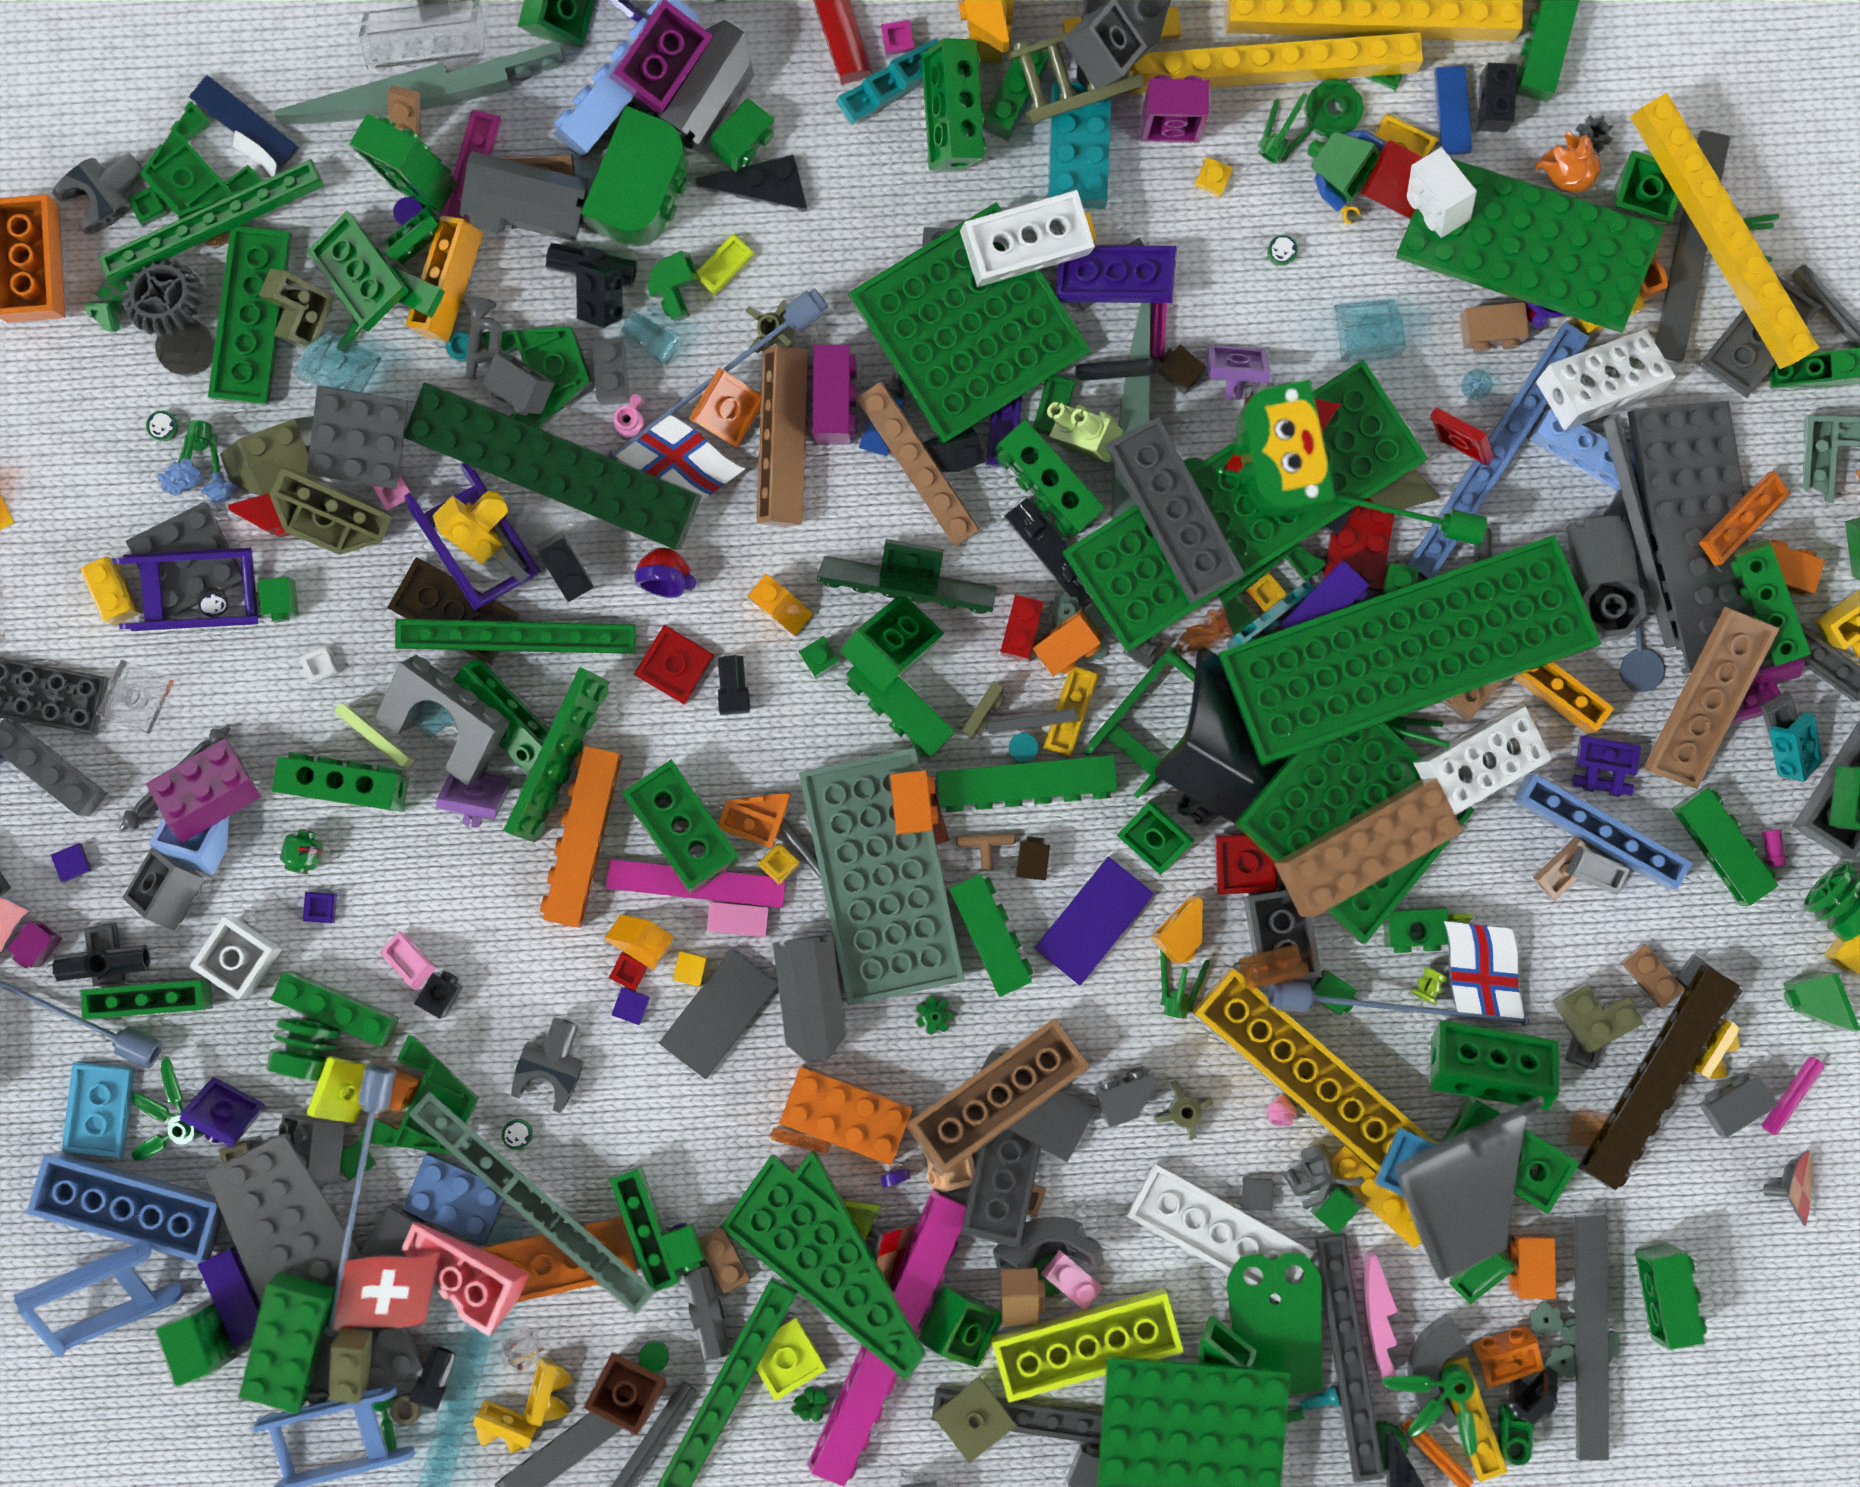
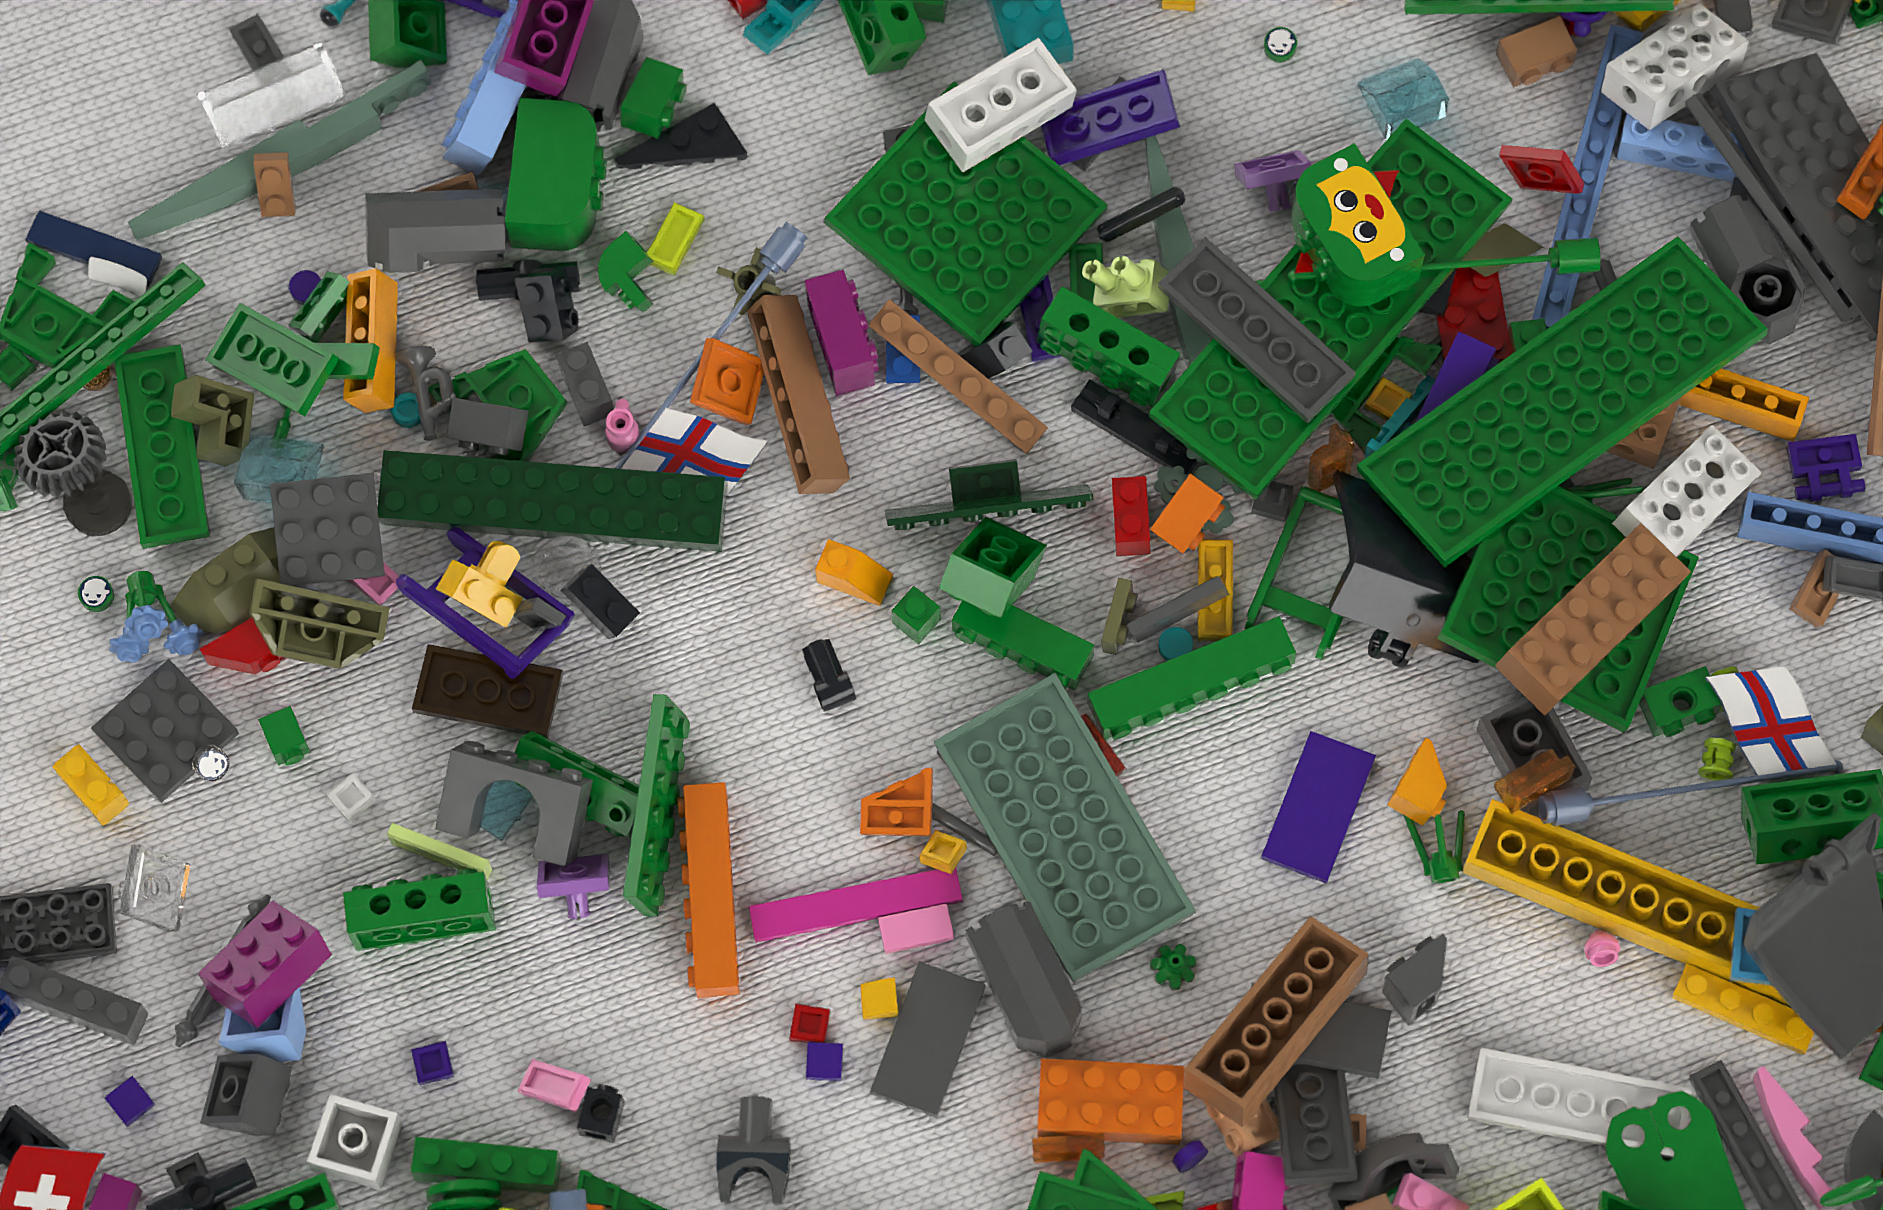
camera: 15 degrees left, 15 degrees down
(153, 595) = (141, 772): dark purple piece -> none
(301, 851) = (394, 1003): green head -> none
(404, 161) = (295, 225): green brick -> none
(479, 138) = (360, 178): dark pink tile -> none
(515, 636) = (567, 694): green tile -> none
(640, 939) = (814, 981): light orange slope -> none
(657, 341) = (628, 339): clear light blue piece -> none
(664, 573) = (712, 579): dark purple piece -> none
(674, 664) = (754, 675): red tile -> none
(685, 807) = (814, 860): green brick -> none
(913, 802) = (1073, 728): orange brick -> none
(985, 842) = (1168, 761): medium nougat piece -> none
(990, 934) = (1208, 853): green brick -> none
(1033, 859) = (1227, 759): dark brown brick -> none
(1155, 837) = (1356, 691): green slope -> none
(1158, 329) = (1173, 160): dark pink axle -> none
(1176, 1107) = (1490, 987): olive brick -> none
(1181, 368) = (1213, 195): dark brown brick -> none
(1242, 866) = (1463, 691): red tile -> none
(1257, 1194) = (1607, 1048): dark grey tile -> none
(1319, 1170) = (1665, 995): dark grey piece -> none
(1332, 986) = (1615, 812): green brick -> none
(1336, 1209) = (1700, 1034): green brick -> none
(1476, 384) = (1539, 118): clear light blue tile -> none
(1641, 668) = (1826, 356): sand blue piece -> none

